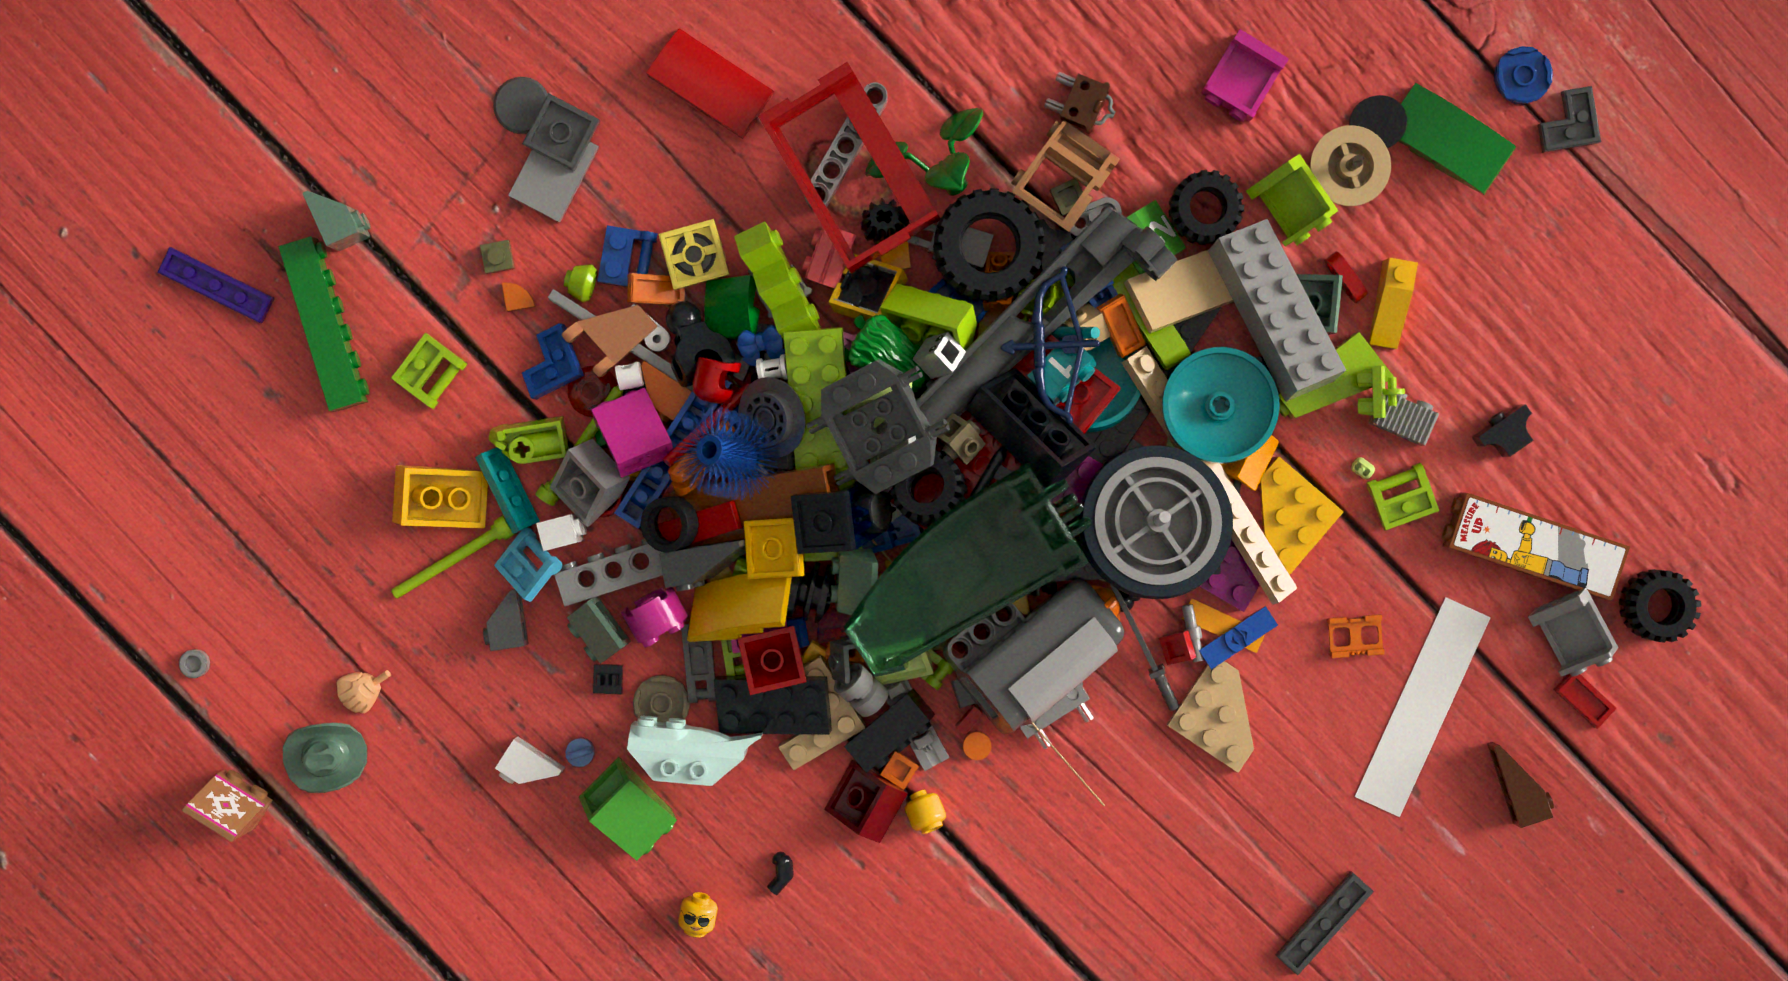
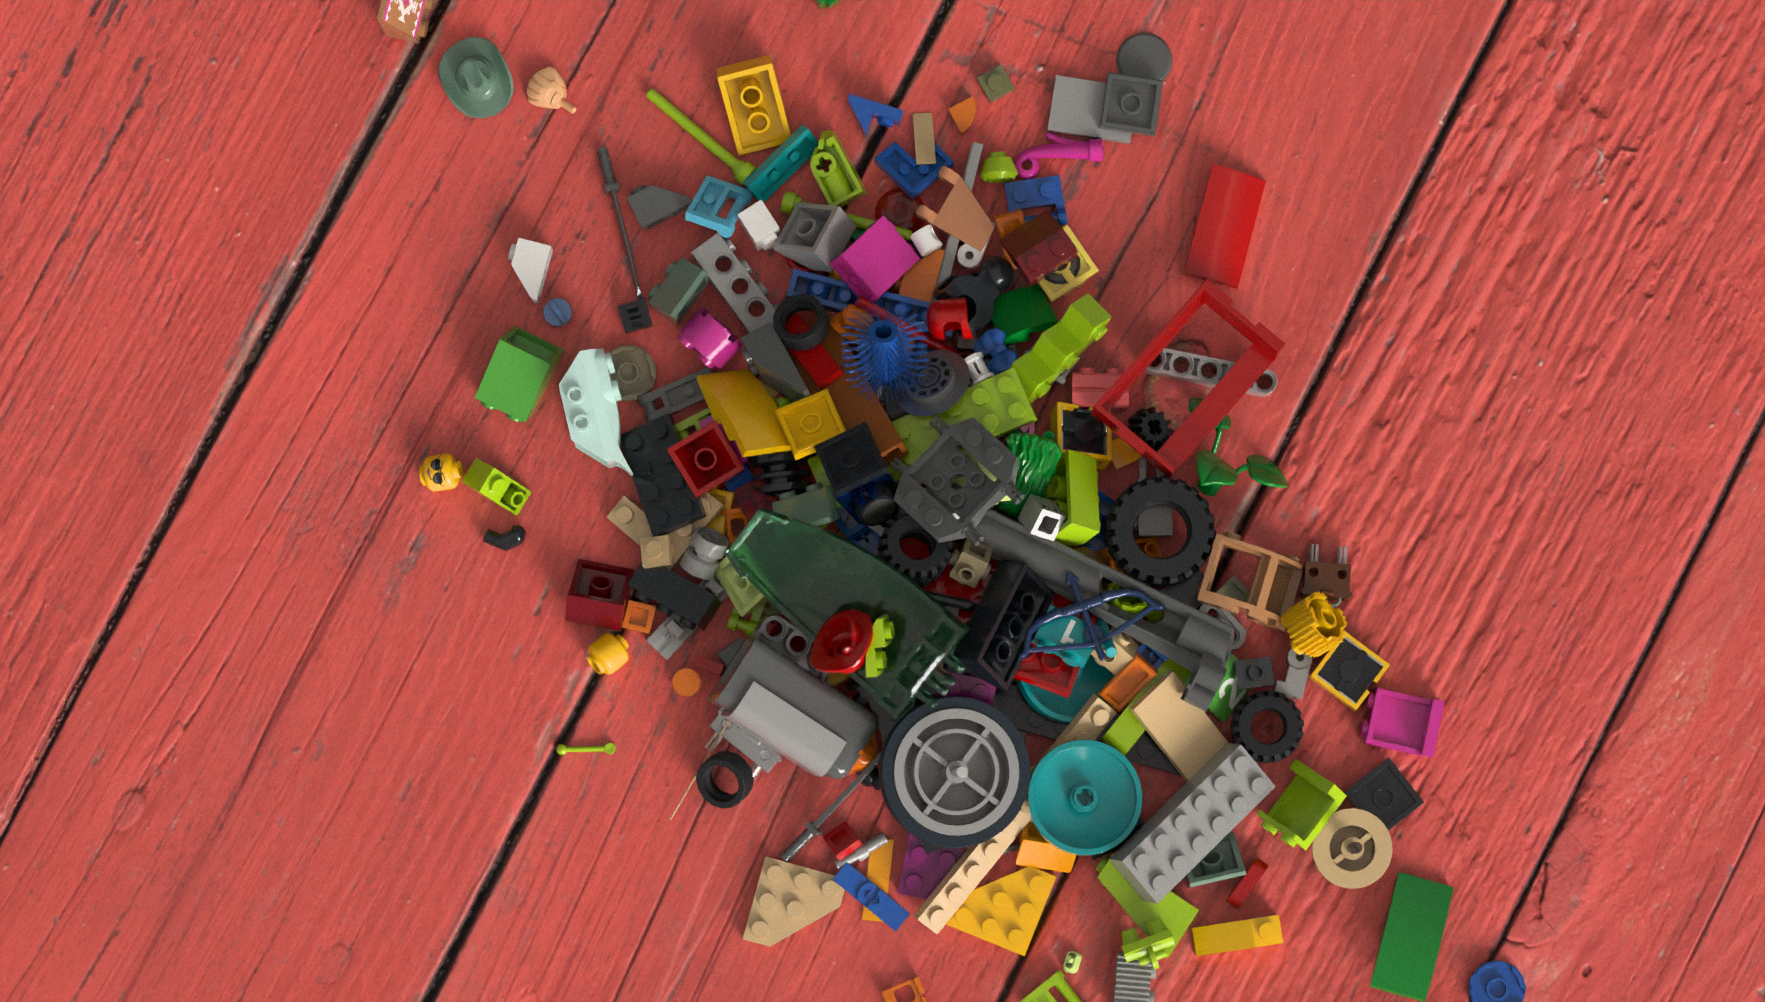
camera: 70 degrees right, 5 degrees down
(421, 365) = (871, 47): lime plate -> none
(476, 660) = (611, 188): none -> dark grey sword
(481, 390) = (865, 110): none -> blue slope
(528, 343) = (924, 138): none -> tan sticker
(582, 214) = (1060, 148): none -> dark pink plant
(673, 268) = (1039, 248): none -> dark red slope
(729, 866) = (496, 486): none -> lime slope
(839, 659) = (725, 521): dark grey bracket -> none
(844, 735) = (656, 551): none -> tan plate
(999, 590) = (842, 642): none -> red hat
(1007, 553) = (882, 634): none -> lime slope
(1014, 839) = (608, 748): none -> lime hinge
(1091, 755) = (740, 769): none -> black tyre
(1127, 128) = (1314, 625): none -> yellow brick
(1152, 202) = (1254, 673): none -> black bracket
(1157, 157) = (1295, 677): none -> light grey leg
(1178, 110) = (1349, 671): none -> black piece
(1306, 118) = (1384, 794): none -> black plate
(1382, 116) = (1408, 866): black piece -> none

